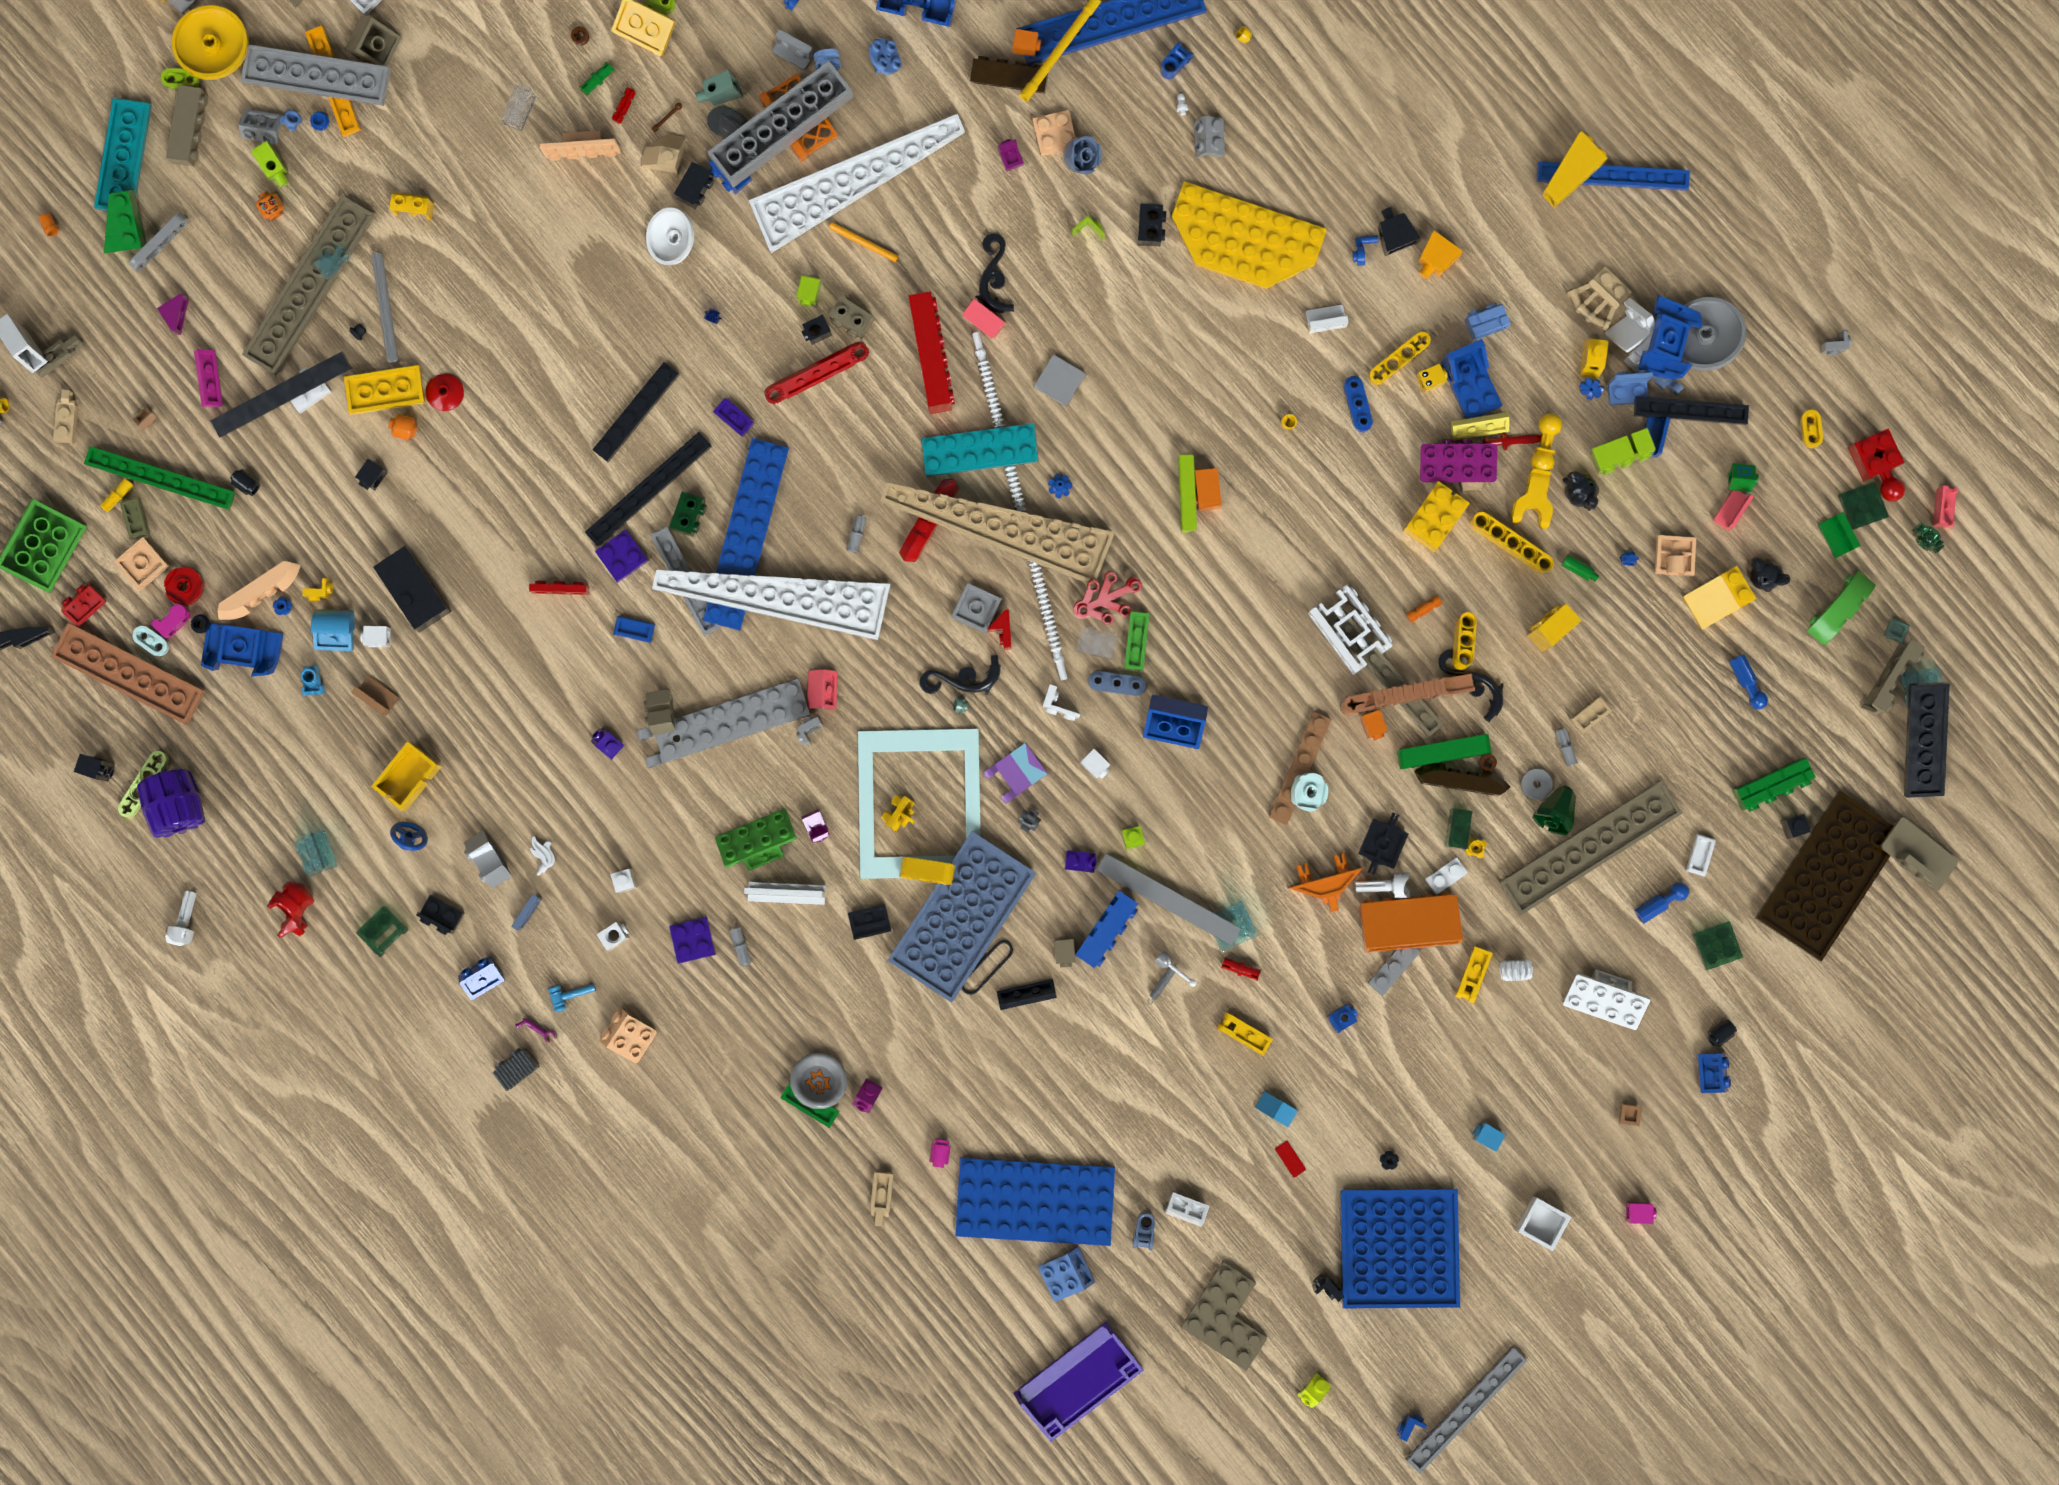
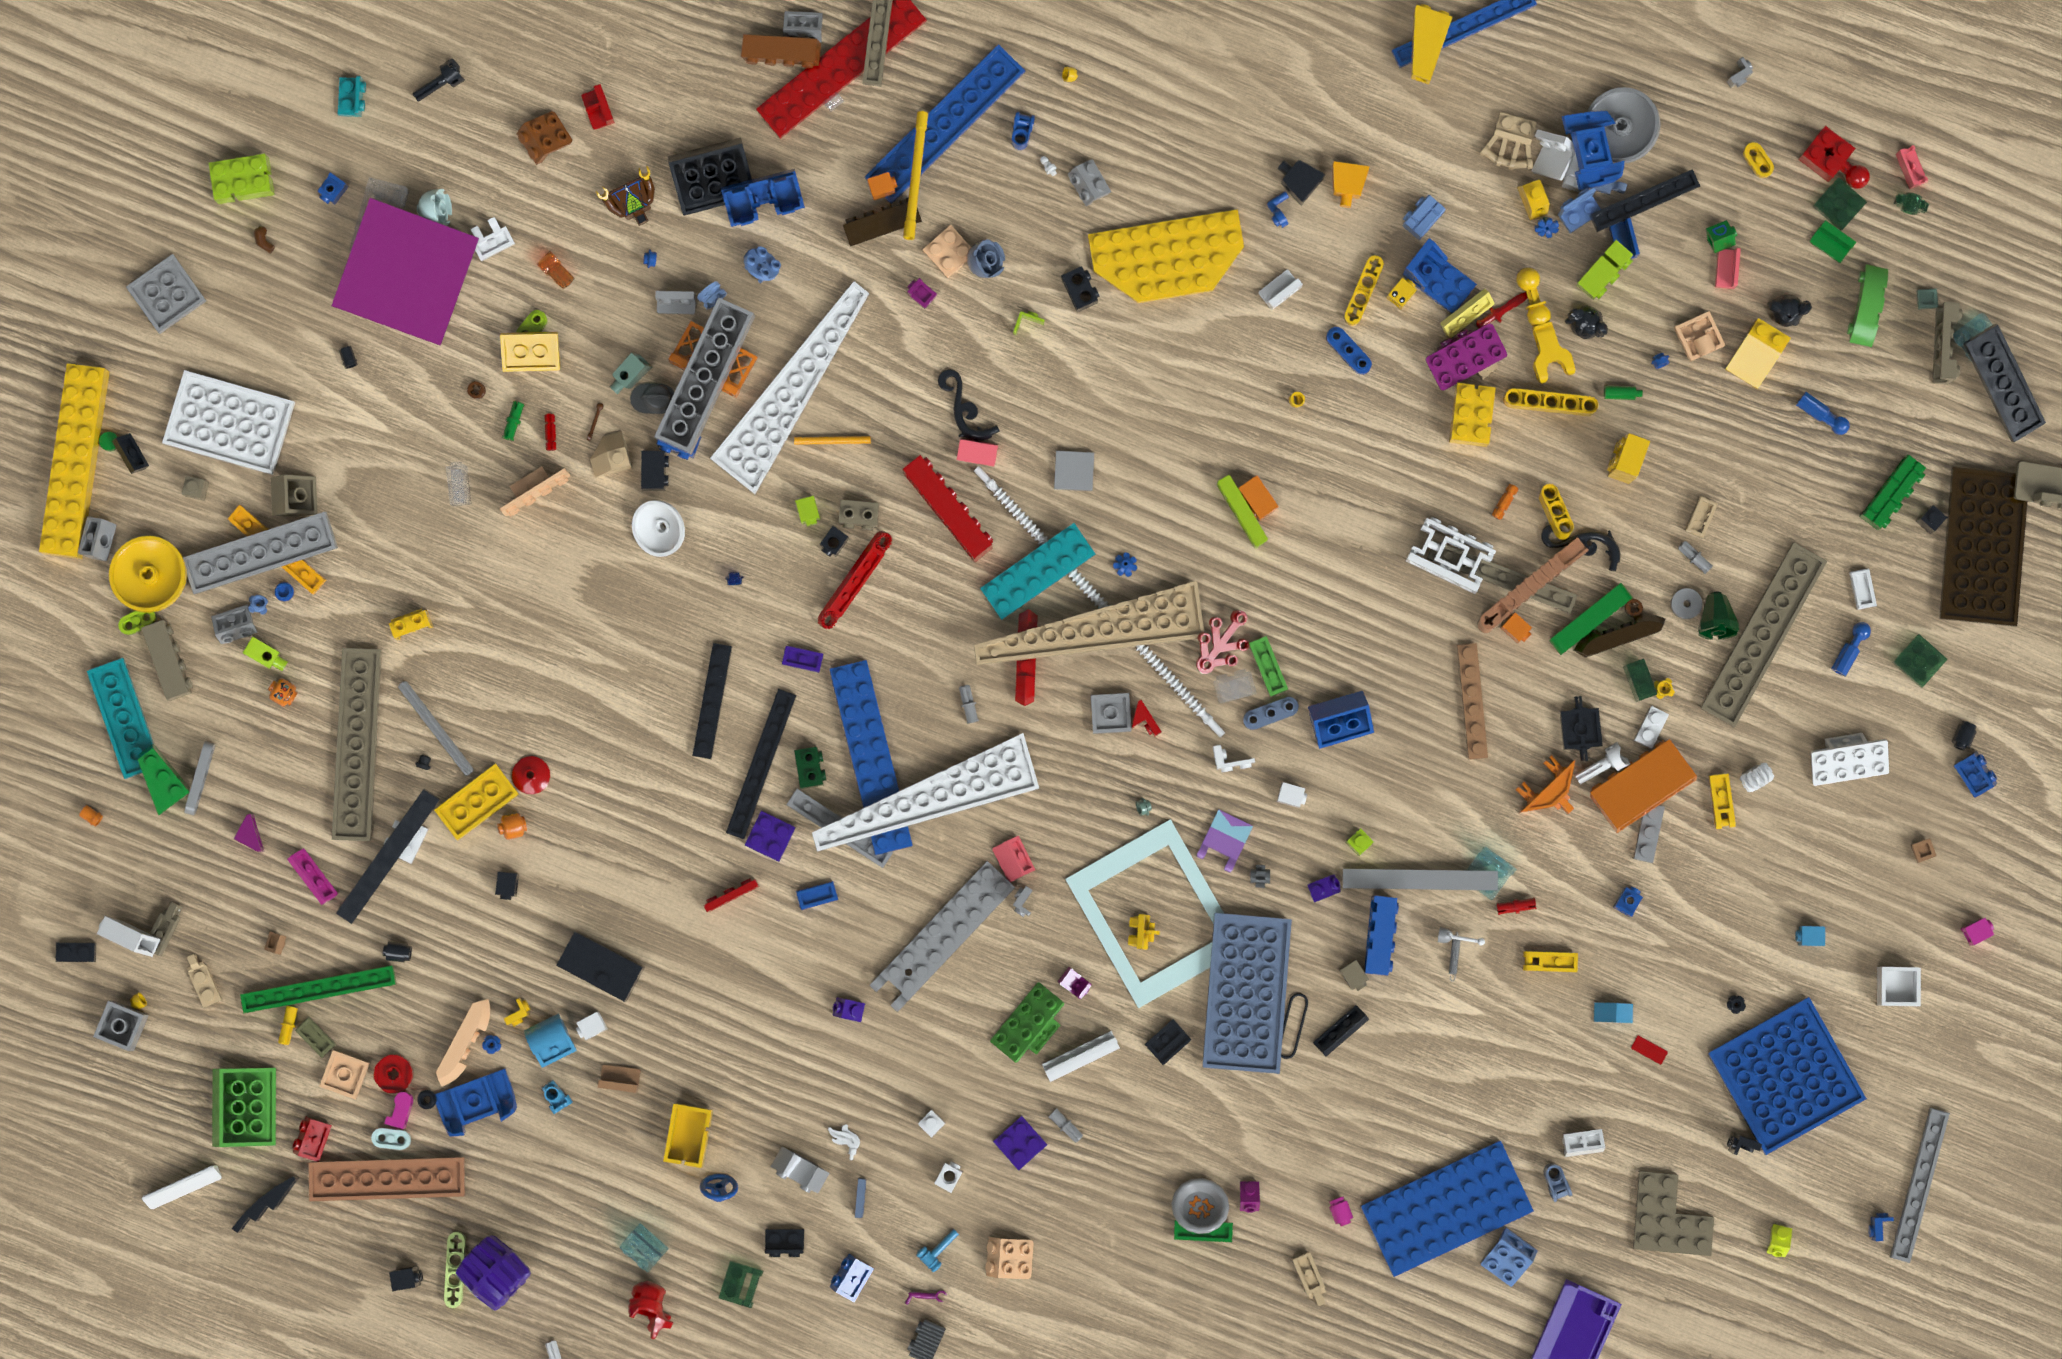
camera: 30 degrees left, 0 degrees up
(329, 264) = (366, 716): clear light blue plate -> none
(660, 712) = (882, 956): dark tan brick -> none
(927, 871) = (1195, 969): yellow beam -> none
(986, 685) = (1133, 788): black plant -> none
(1300, 787) = (1483, 721): light aqua plate -> none

